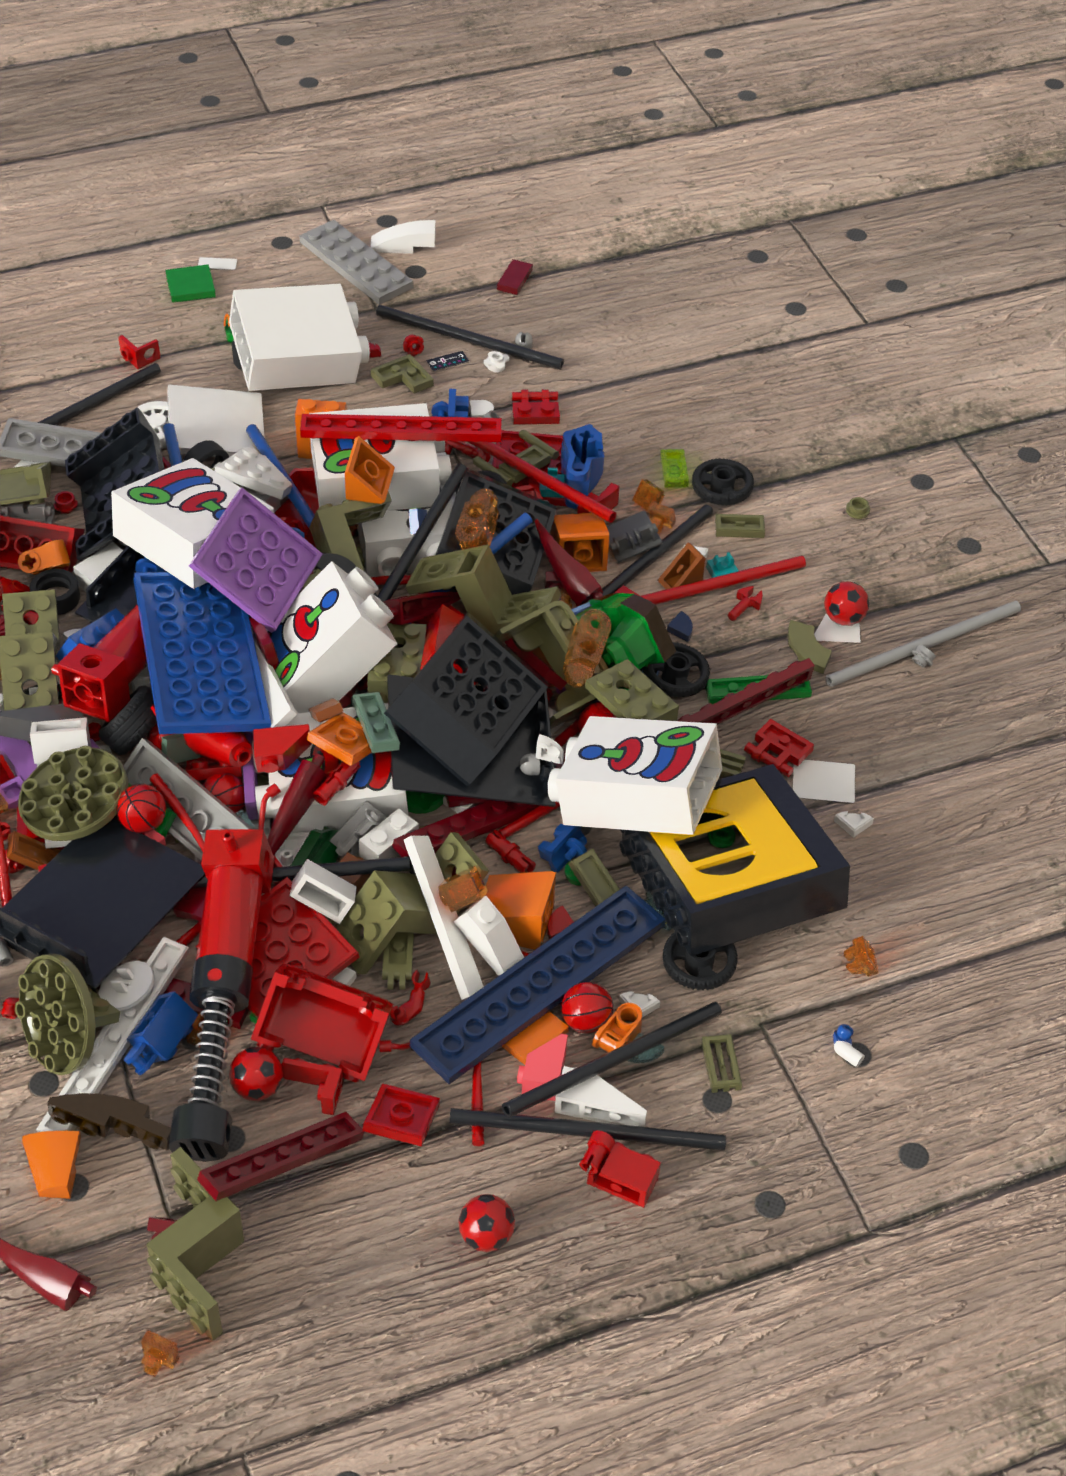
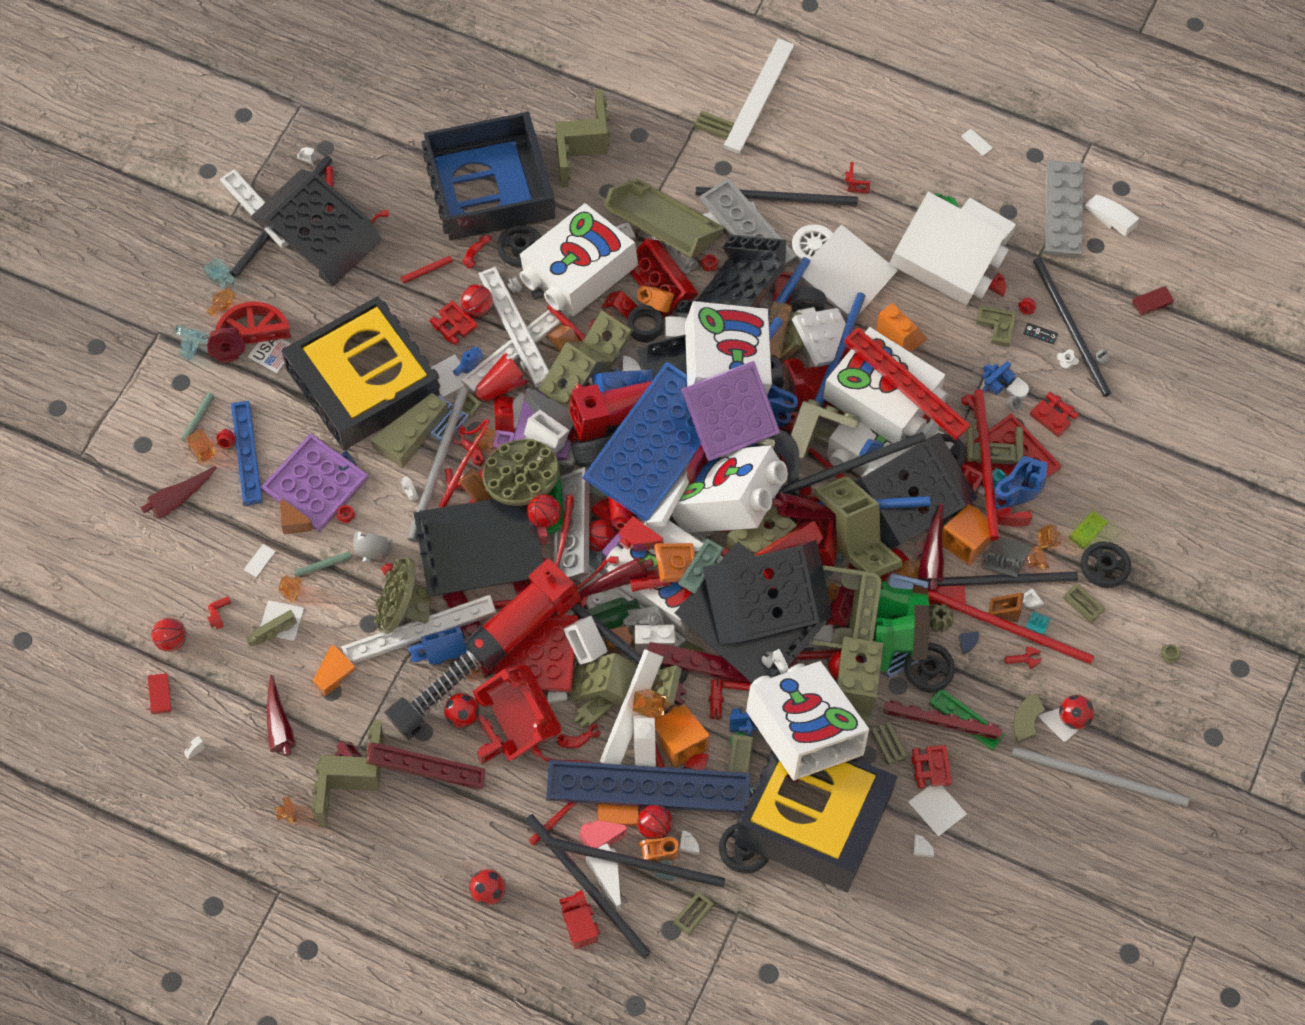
camera: 45 degrees right, 15 degrees up
(100, 1112) = (372, 667): dark brown slope -> none
(127, 985) = (448, 607): white piece -> none
(190, 283) = (942, 147): green tile -> none
(326, 710) = (684, 535): dark orange tile -> none
(367, 474) = (851, 401): orange slope -> none
(401, 1114) = (509, 794): red tile -> none
(478, 520) = (895, 481): clear orange piece -> none
(578, 665) = (848, 624): clear orange piece -> none
(843, 1045) = (764, 963): white arm -> none
(864, 957) = (830, 926): clear orange tile -> none
(923, 656) = (1086, 784): light grey plate -> none

